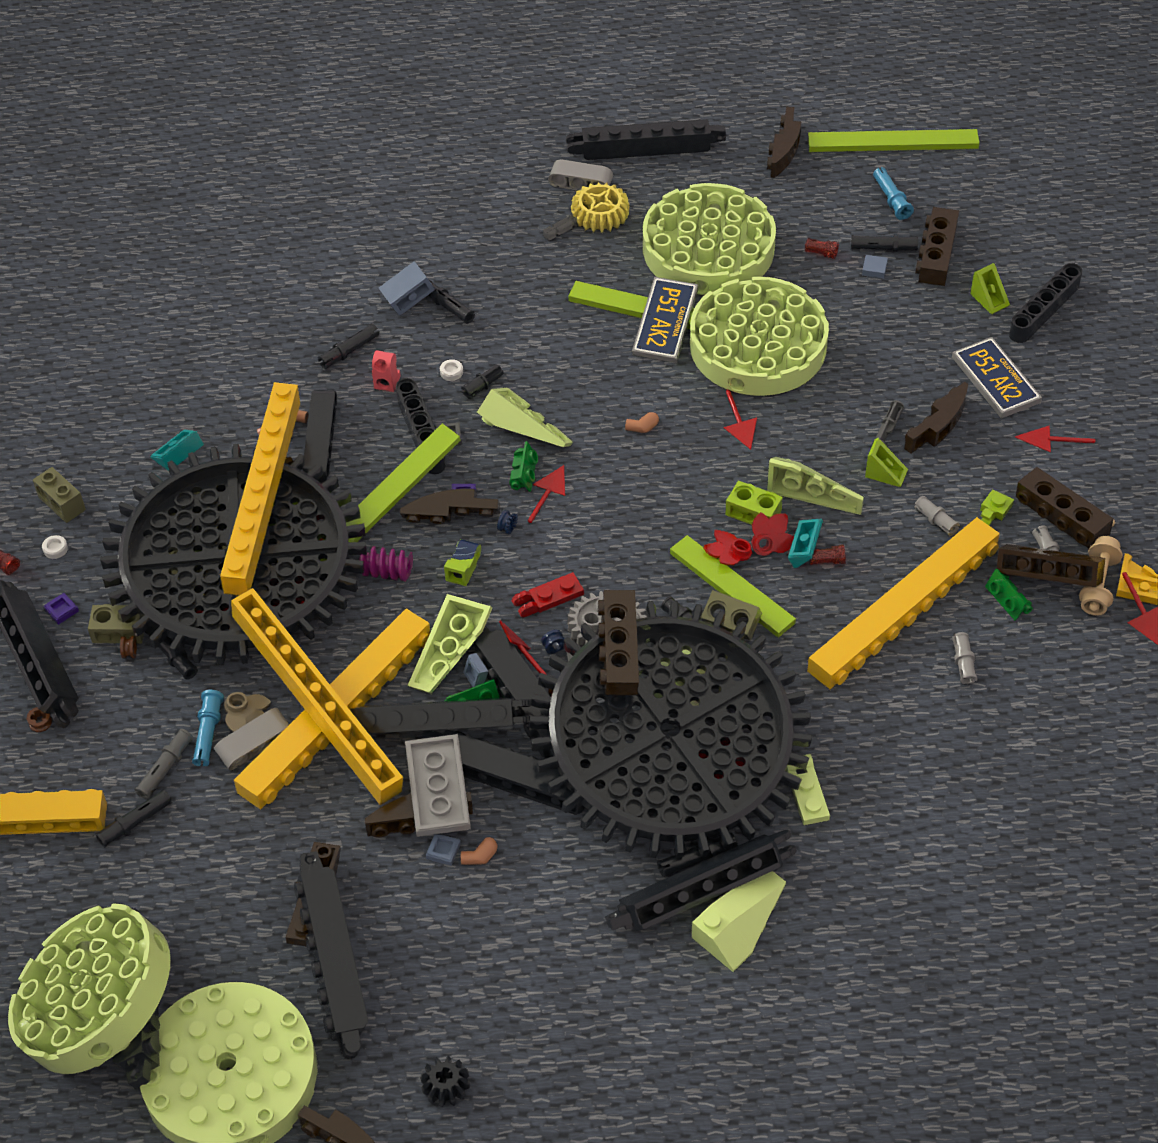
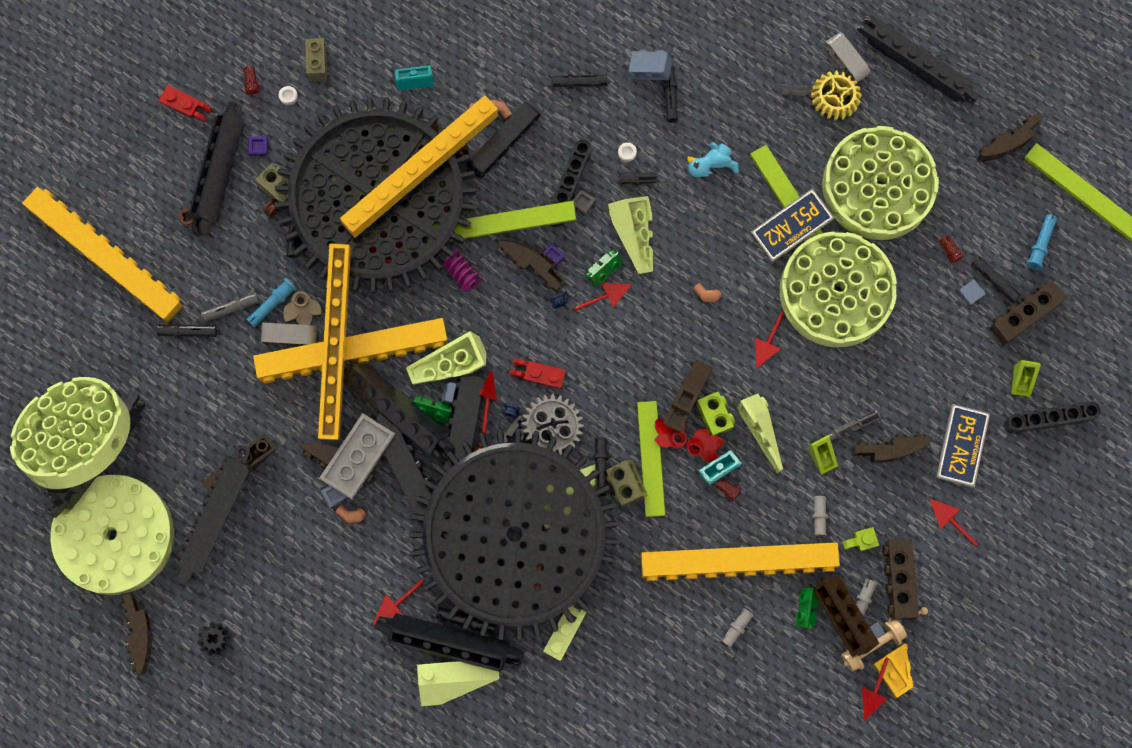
camera: 35 degrees right, 25 degrees up
(385, 368) = (581, 123): coral leg -> none
(462, 562) = (508, 308): lime leg -> none
(541, 316) = (715, 158): none -> medium azure animal
(604, 907) = (389, 609): none -> red piece
(618, 679) = (497, 480): dark brown brick -> none
(714, 507) = (687, 396): none -> dark brown slope

